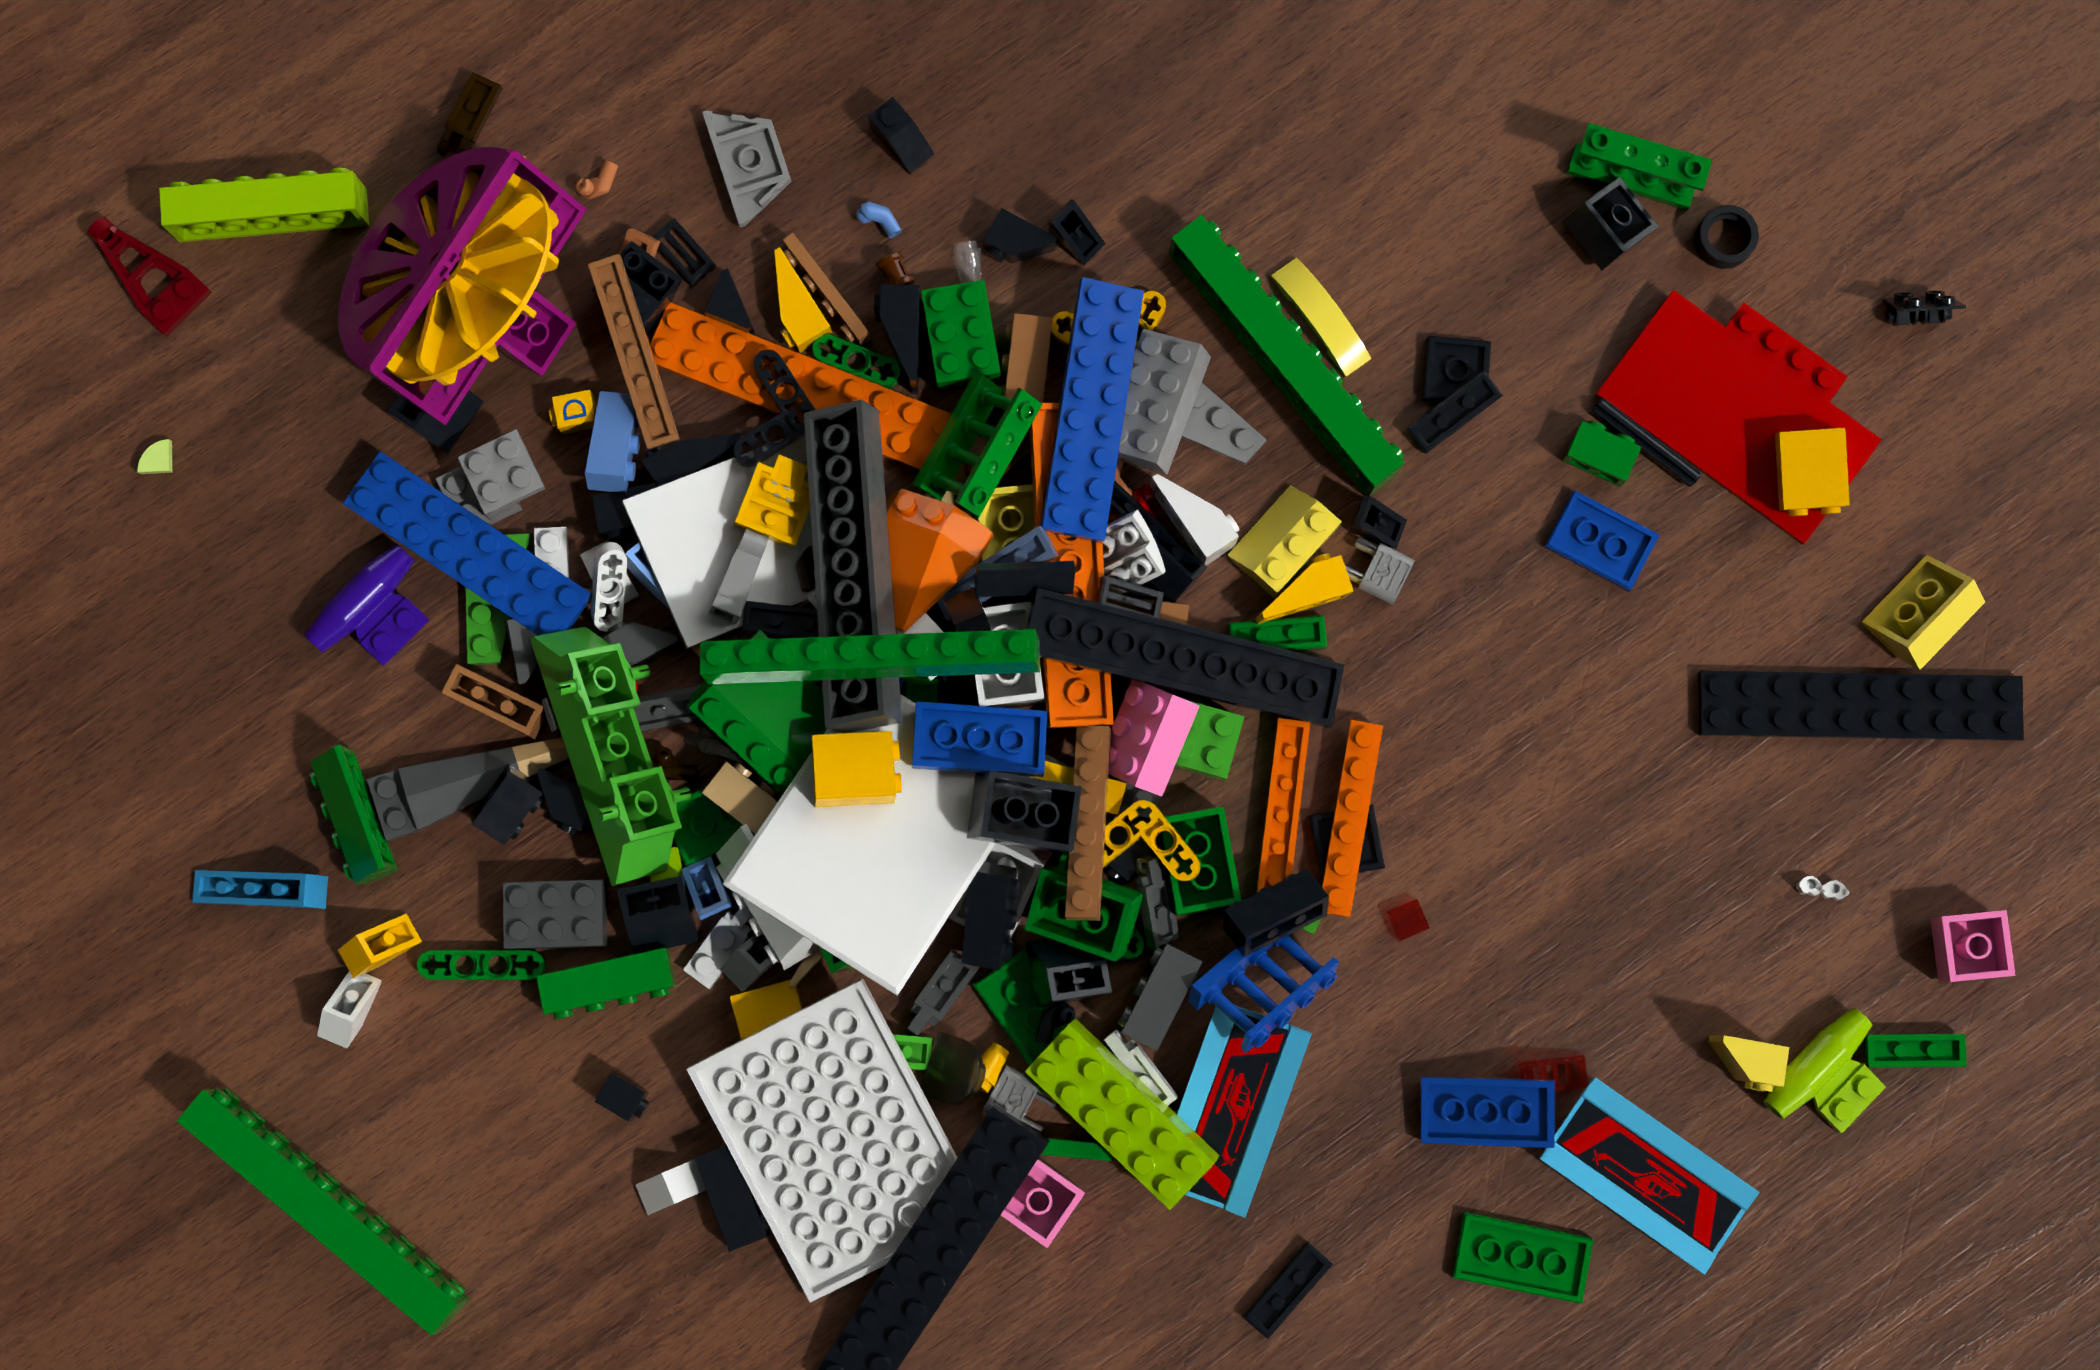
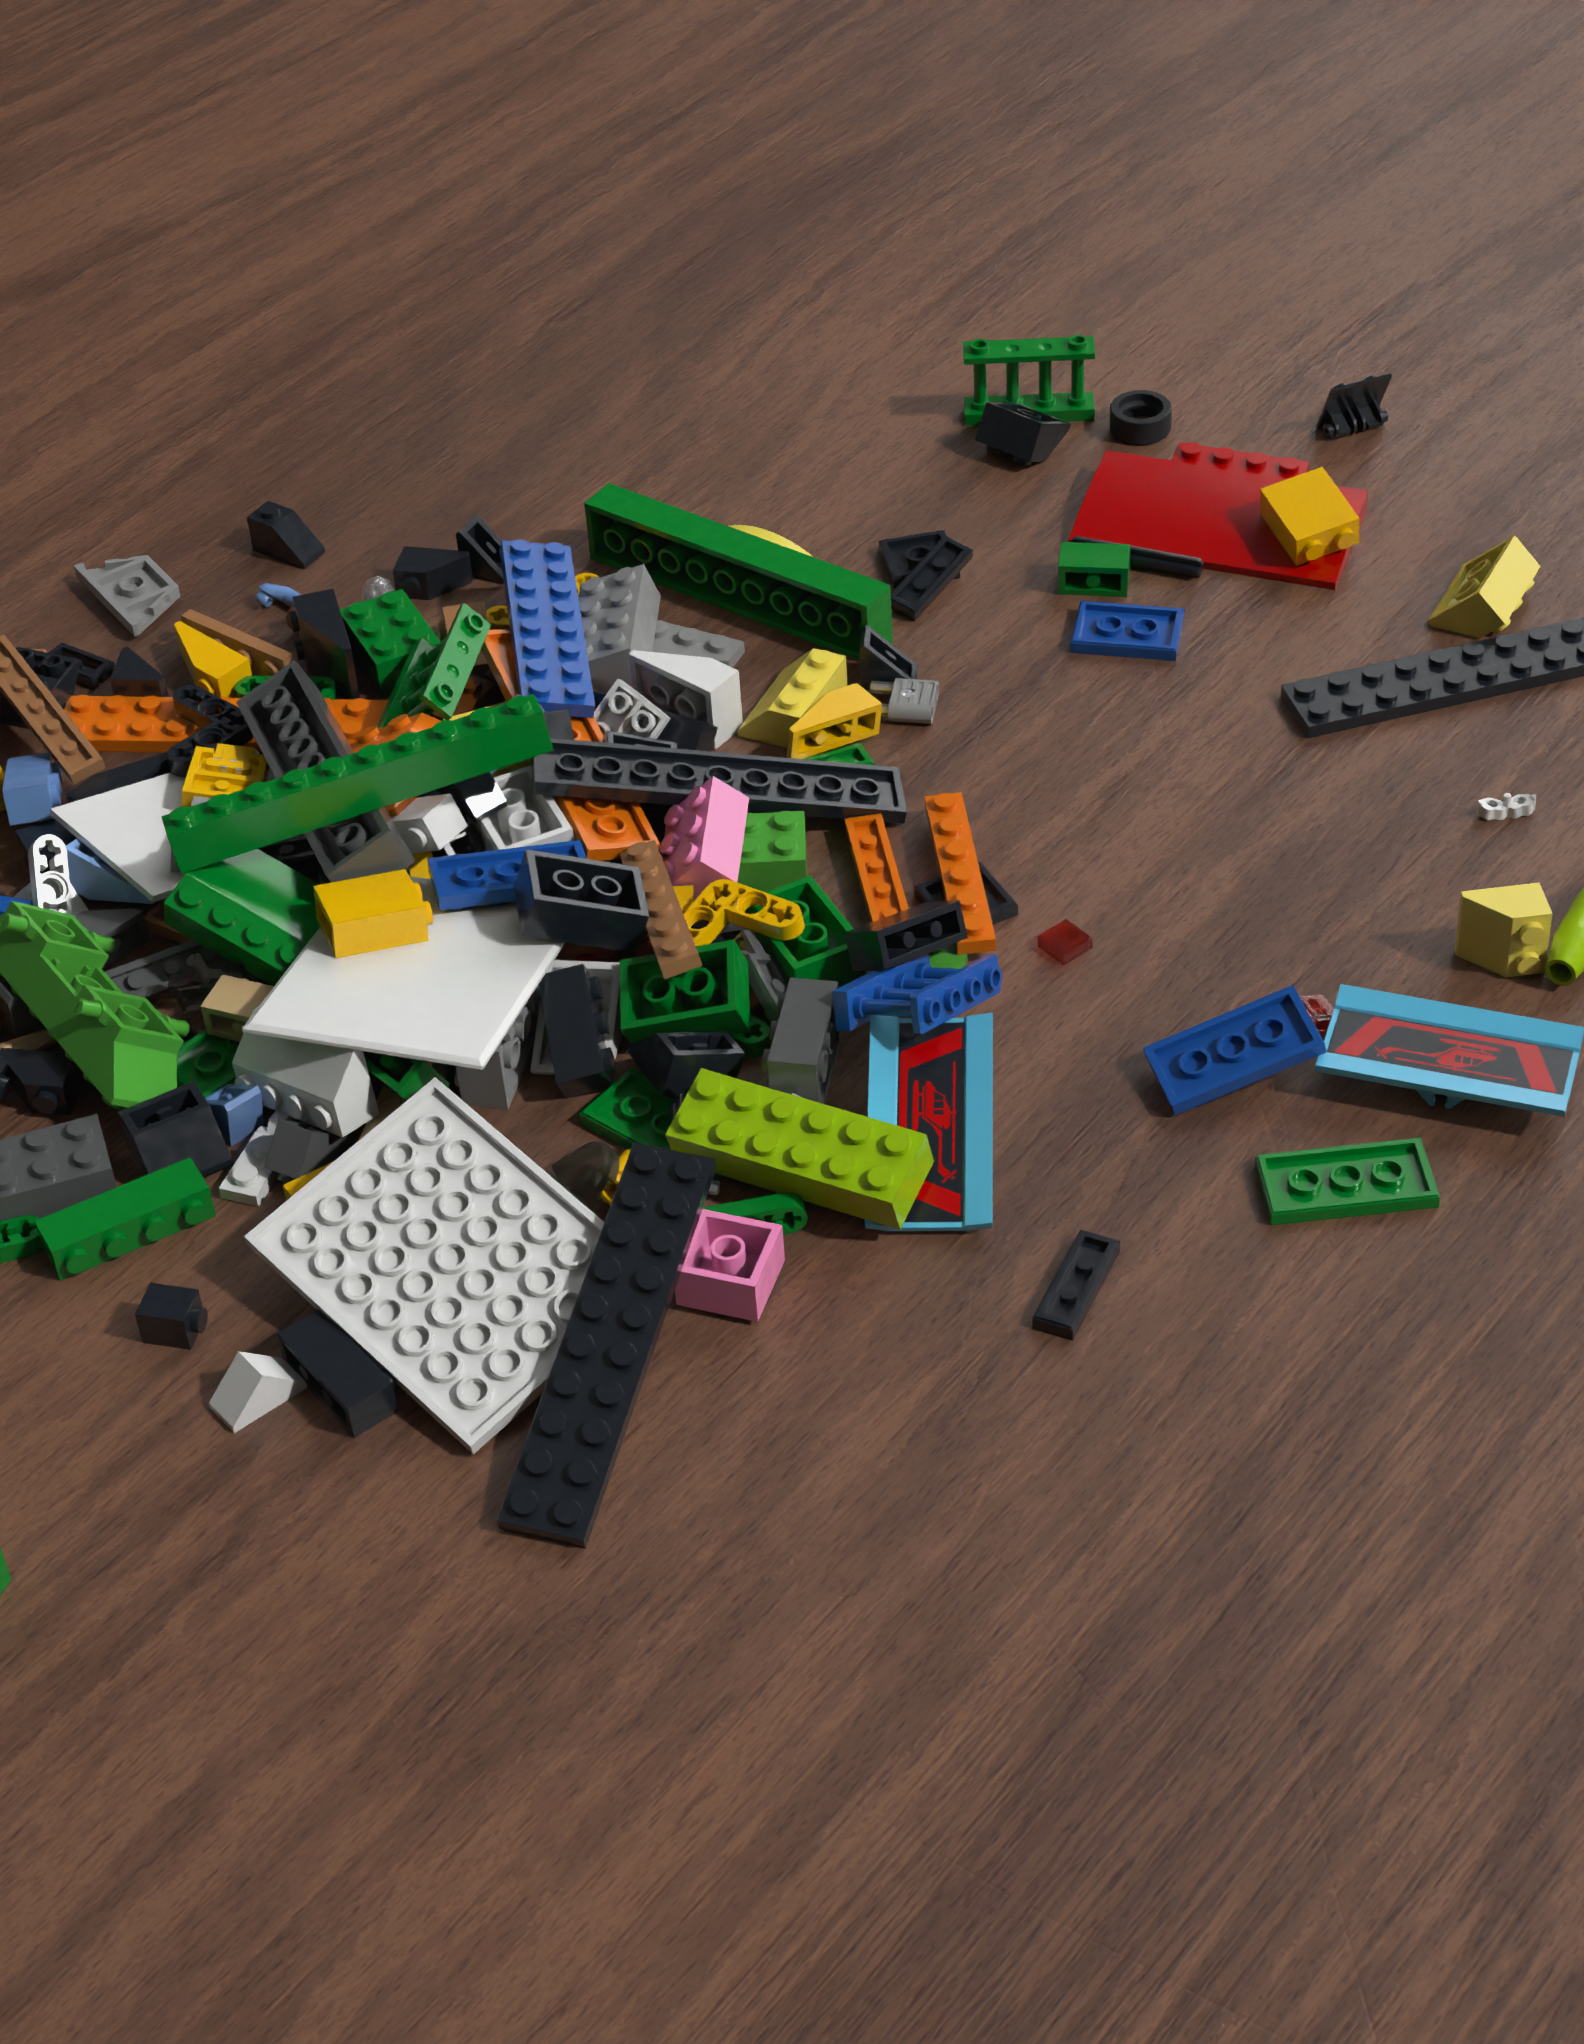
camera: 10 degrees left, 40 degrees down
(941, 992) = (546, 1122): dark grey hinge -> none

